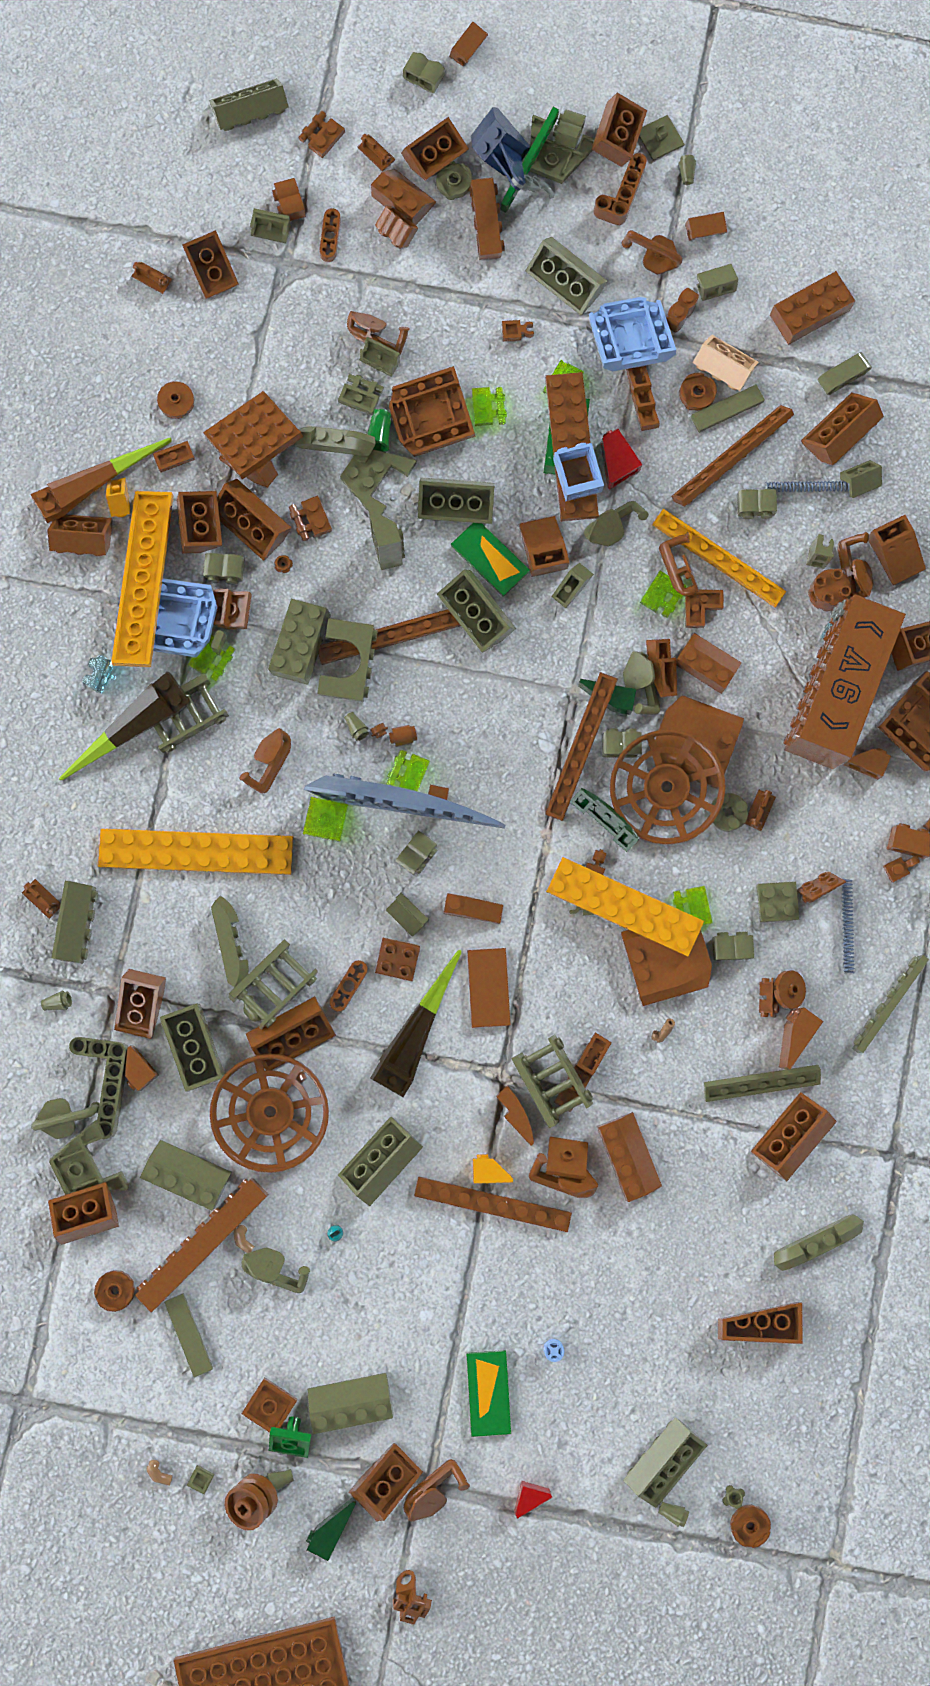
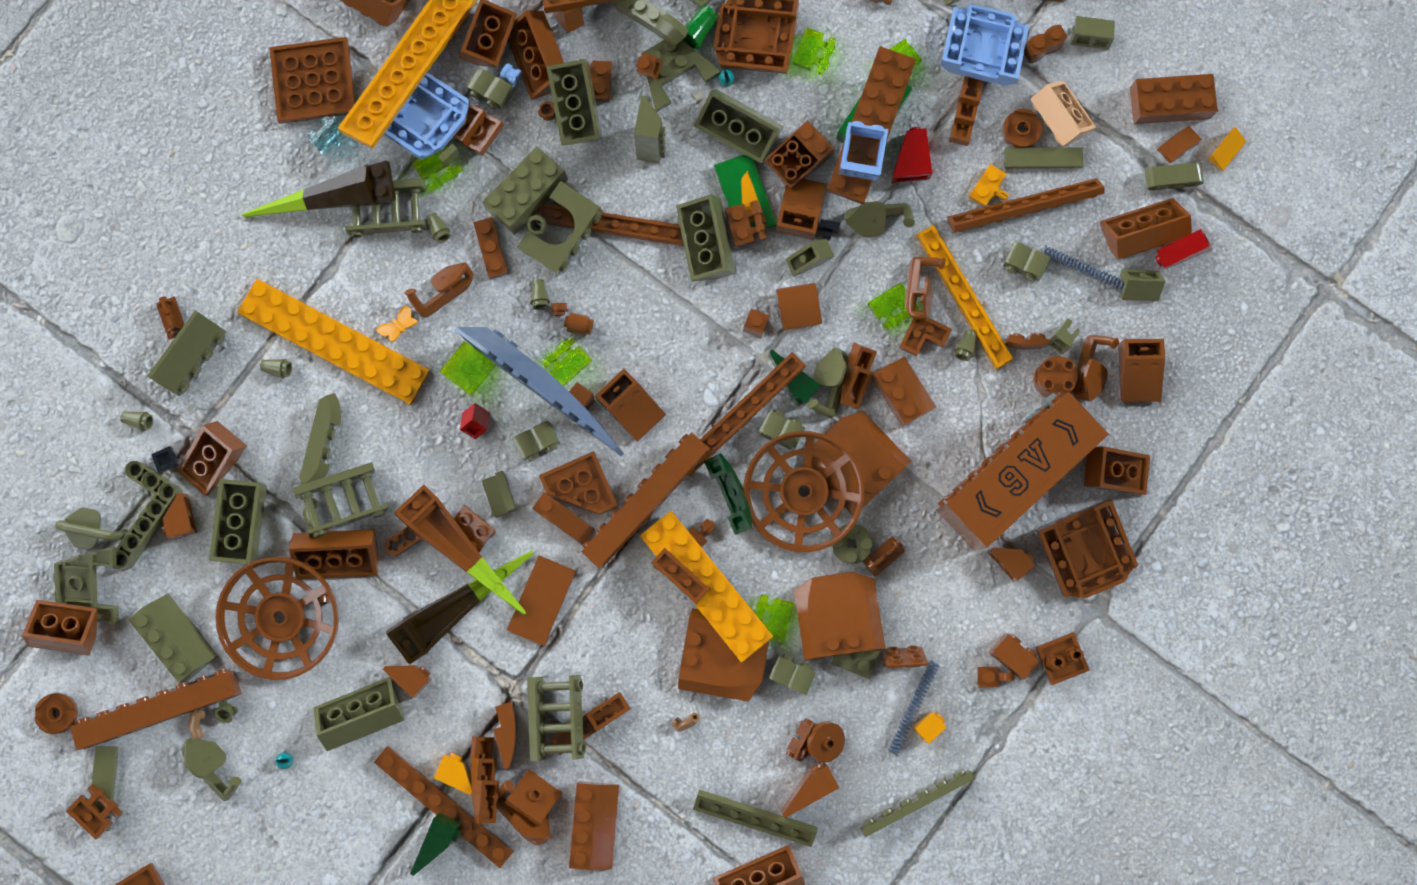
camera: 30 degrees right, 0 degrees up
(62, 632) = (312, 80): none -> dark orange plate
(100, 1024) = (165, 459): none -> black tile
(158, 897) = (277, 367): none -> olive cone
(192, 1364) = (89, 816): none -> dark orange plate
(236, 547) = (511, 75): none -> light blue wheel
(239, 710) = (438, 228): none -> olive cone
(249, 804) = (394, 330): none -> light orange piece
(263, 1220) = (224, 716): none -> olive plate
(292, 706) = (490, 248): none -> dark orange plate
(305, 545) = (574, 102): none -> olive slope
(326, 670) = (533, 227): none -> olive cone
(354, 483) = (649, 66): none -> dark orange brick
(355, 861) = (475, 421): none -> red panel
(367, 967) = (433, 523): none -> dark orange plate
(409, 1108) = (409, 678): none -> dark orange slope
(421, 467) = (722, 80): none -> teal hinge
(473, 872) = (580, 484): none -> dark orange plate
(482, 783) = (630, 405): none -> dark orange slope
(500, 586) = (739, 223): none -> dark orange plate
(504, 1234) = (439, 837): none -> dark green slope
(519, 1168) = (483, 781): none -> dark orange slope
(521, 500) = (800, 155): none -> dark orange slope
(537, 858) = (646, 500): none -> dark orange brick
(555, 663) = (756, 323): none -> dark orange brick
(576, 552) = (828, 227): none -> black tile
(584, 631) = (799, 306): none -> dark orange slope
(600, 908) = (680, 576): none -> dark orange plate
(694, 454) = (989, 186): none -> light orange plate
(741, 599) = (965, 348): none -> olive cone
(748, 878) = (839, 616): none -> dark orange wedge
(796, 568) = (1033, 341): none -> dark orange slope
(835, 344) = (1179, 144): none -> dark orange slope
(869, 934) = (930, 726): none -> light orange brick
(876, 330) = (1227, 149): none -> light orange slope
(883, 432) = (1183, 249): none -> red slope

